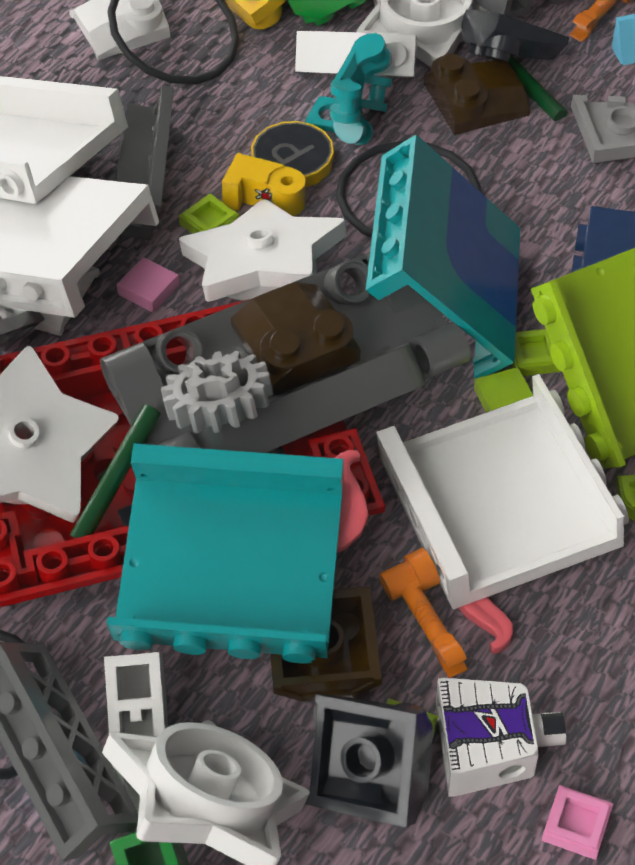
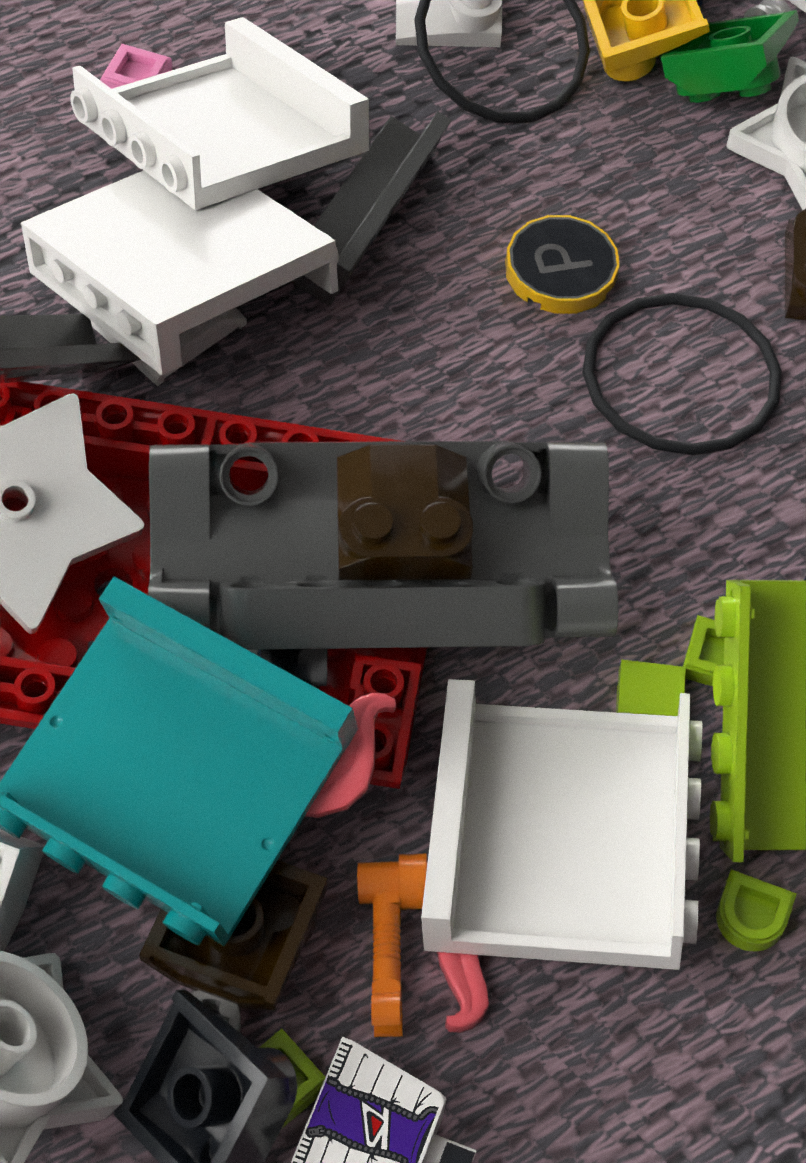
camera: 20 degrees right, 5 degrees up
(115, 473) = (88, 606): dark green bar -> none
(148, 284) = (293, 364): bright pink tile -> none
(207, 214) = (413, 308): lime tile -> none
(217, 391) = (260, 549): light grey gear -> none
(258, 179) = (500, 291): yellow leg -> none
(260, 251) = (442, 380): white plate -> none
(328, 50) = (715, 162): white slope -> none
(364, 60) = (665, 206): teal piece -> none
(448, 247) = (659, 480): teal panel -> none

